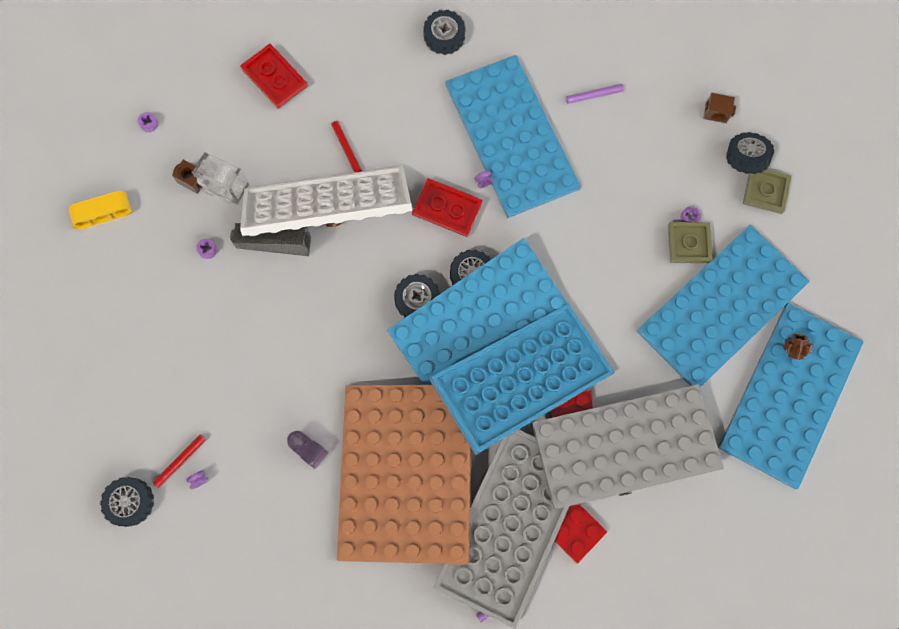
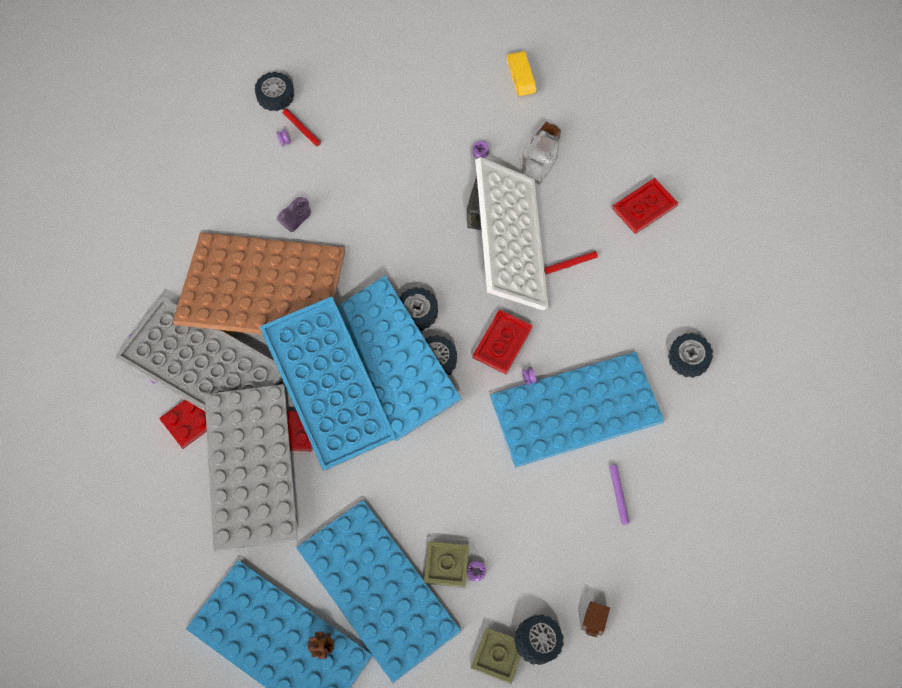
camera: 100 degrees right, 10 degrees down
(149, 126) = (605, 112): medium lavender bush -> none

